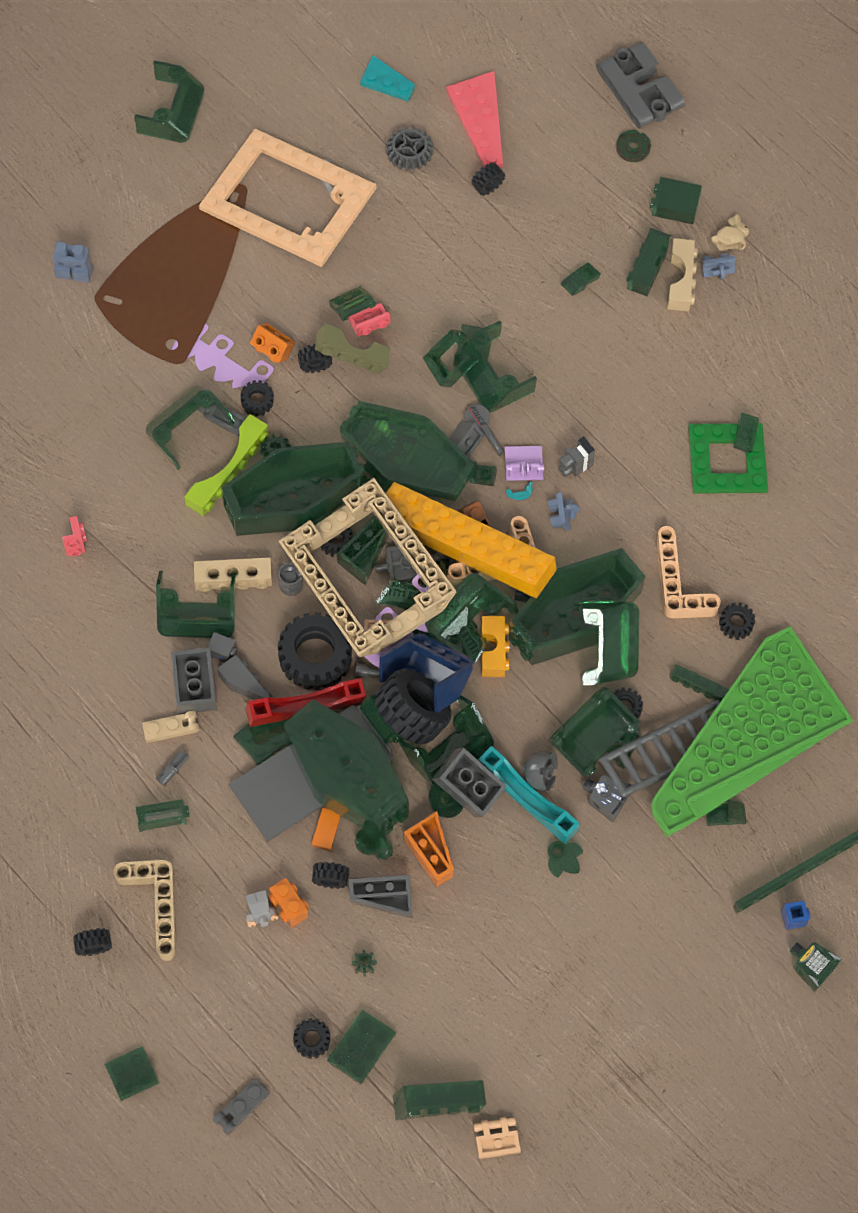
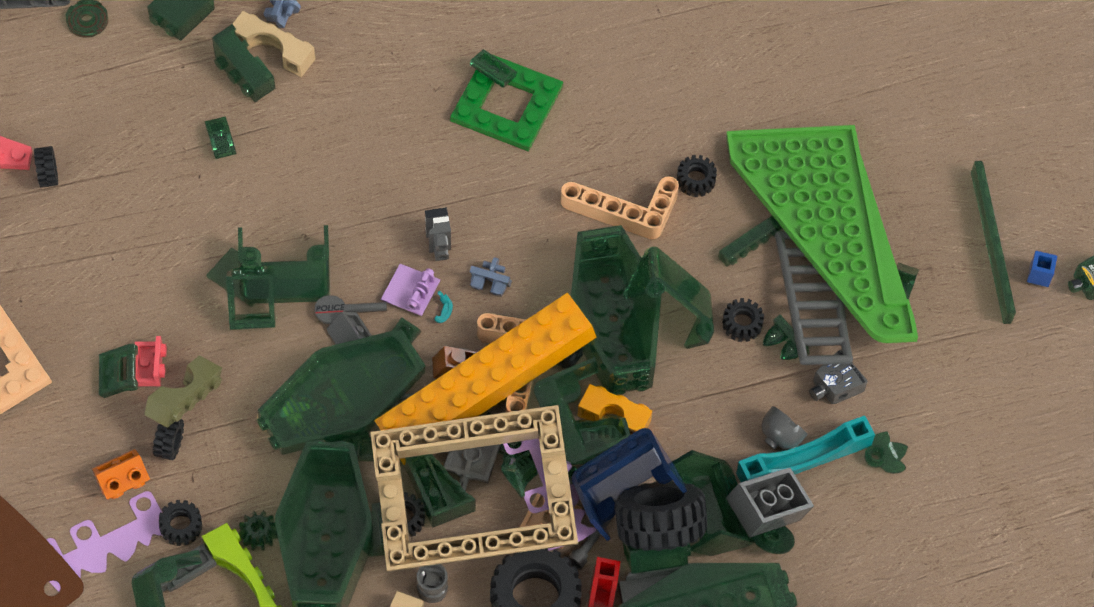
camera: 65 degrees left, 5 degrees down
(430, 849) = (826, 576): orange wedge -> none
(593, 730) = (759, 358): clear green windscreen -> none

